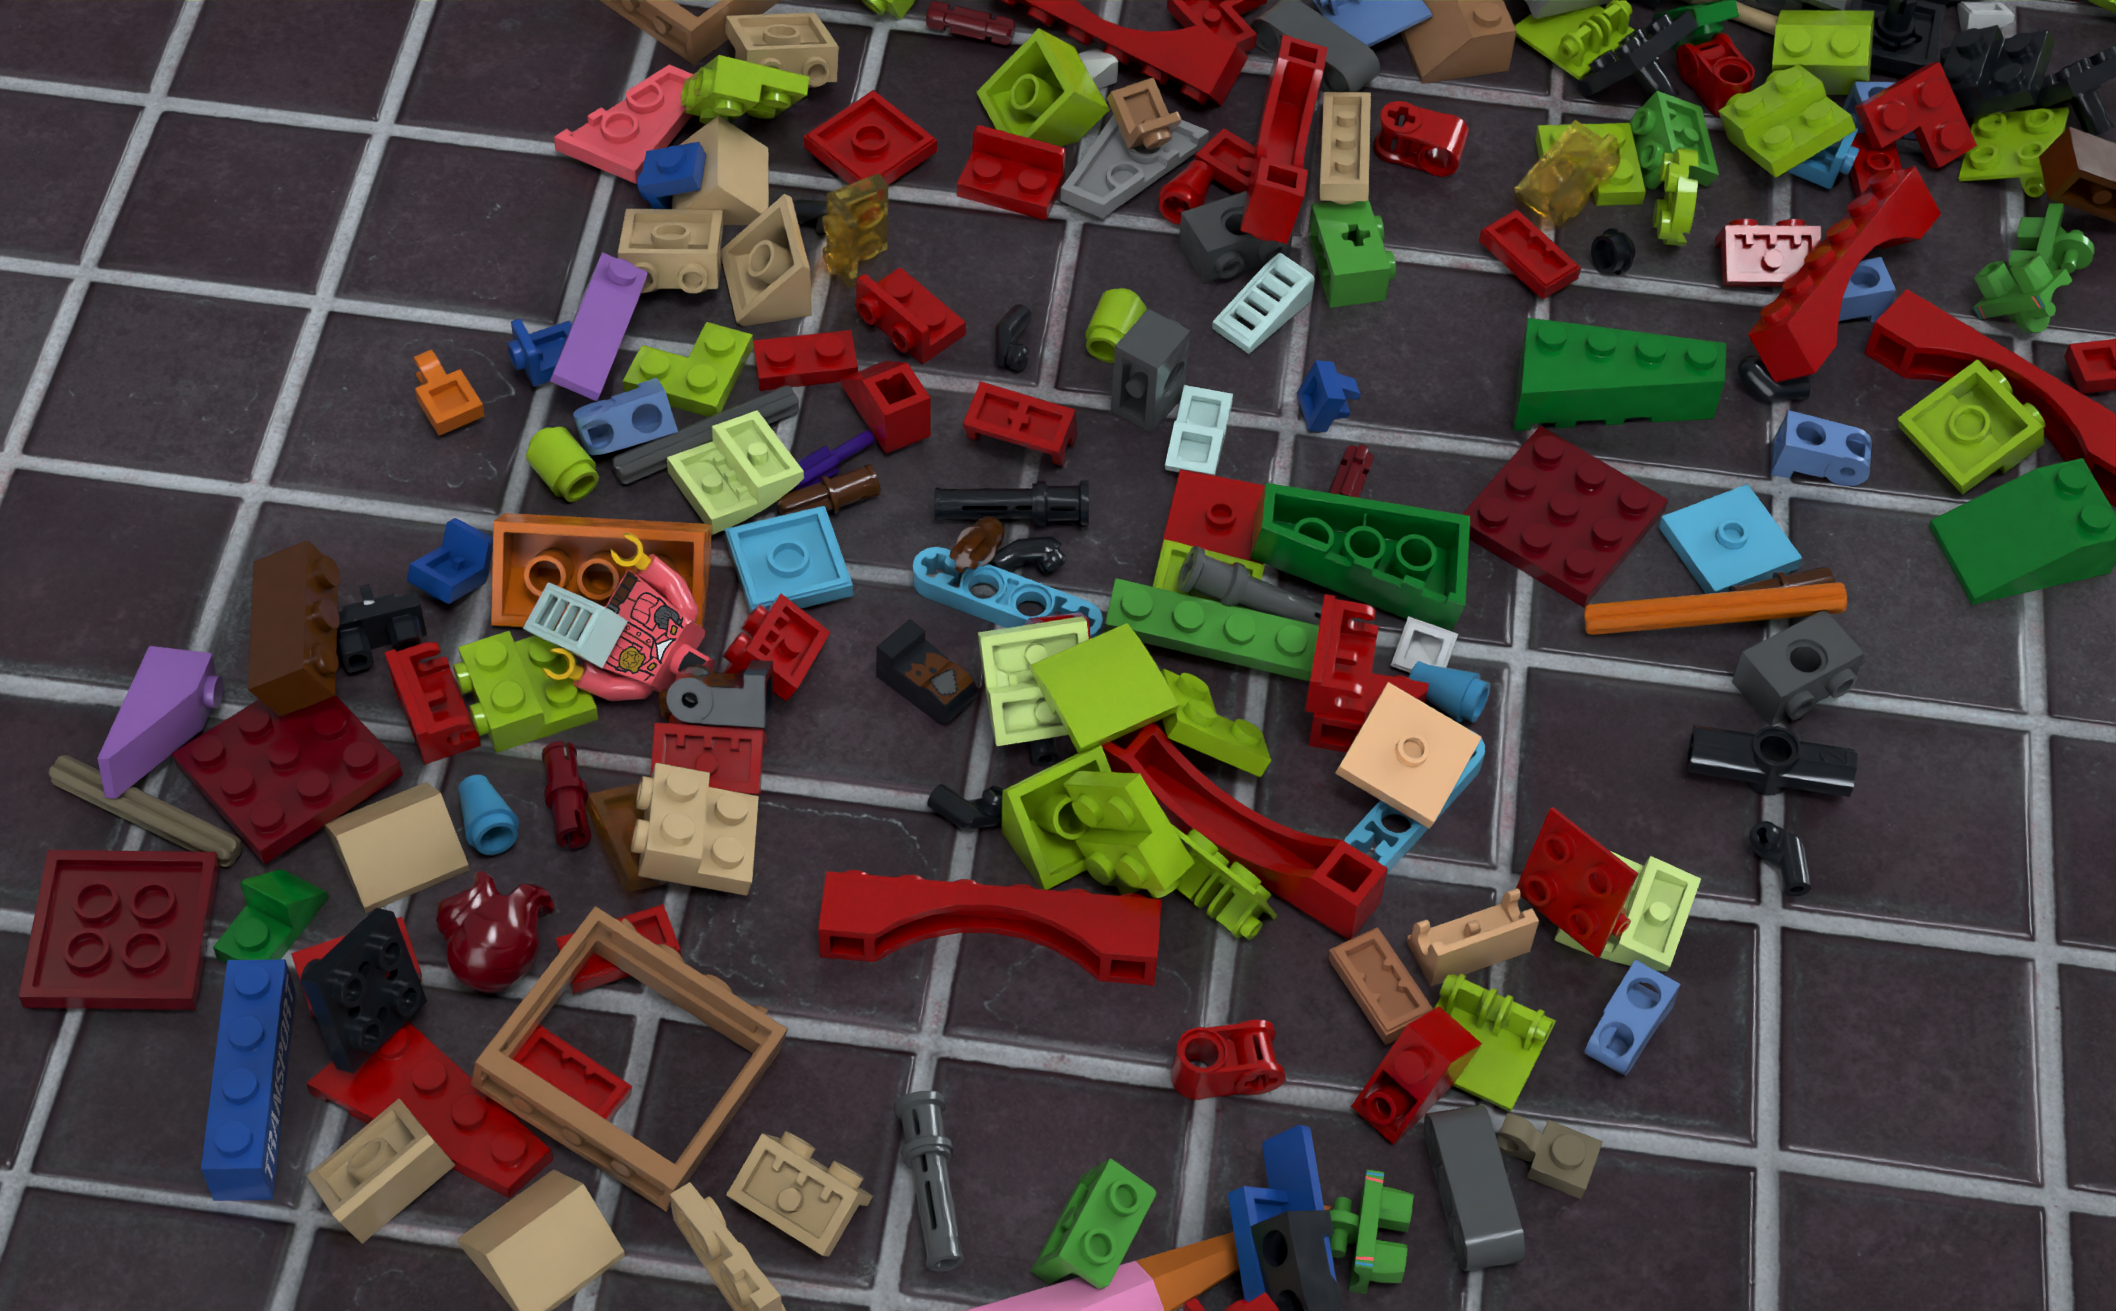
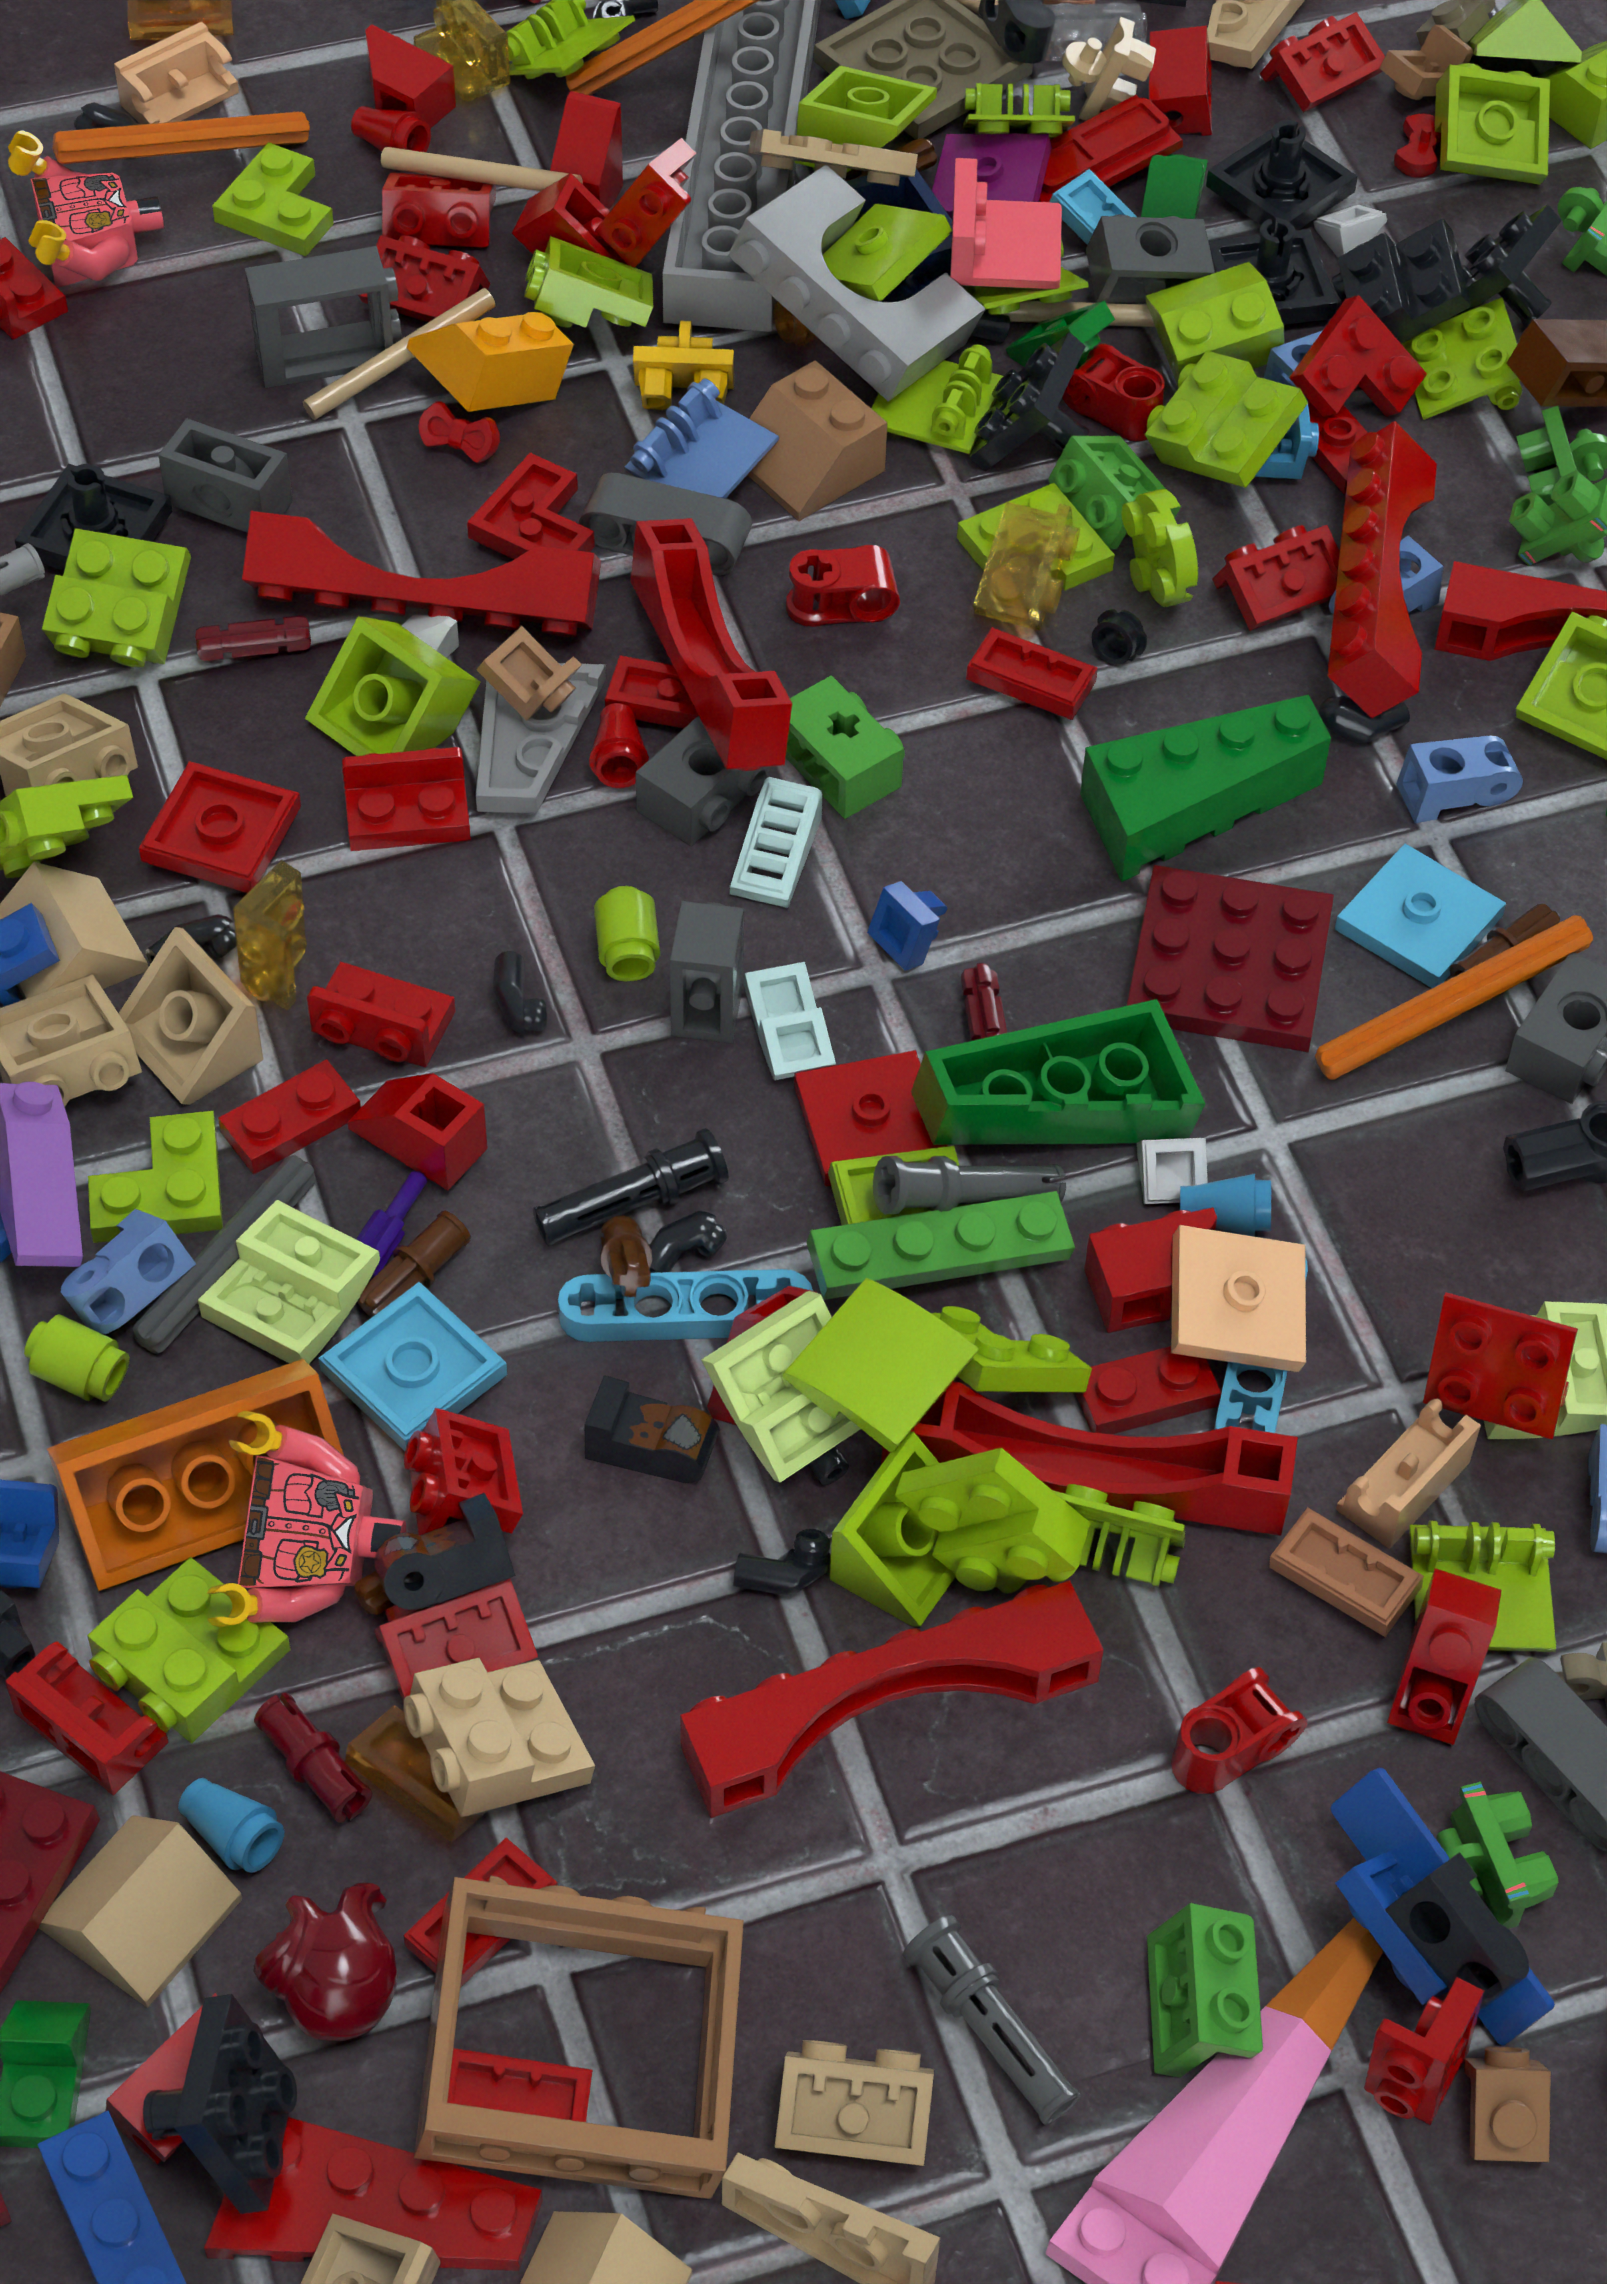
camera: 25 degrees left, 0 degrees up
(598, 635) = (265, 1548): light aqua slope -> none
(1021, 421) = (590, 1089): red hinge -> none
(1309, 796) = (1147, 1390): none -> red plate
(1342, 660) = (1111, 1221): red hinge -> none
(1345, 147) = (774, 626): tan plate -> none

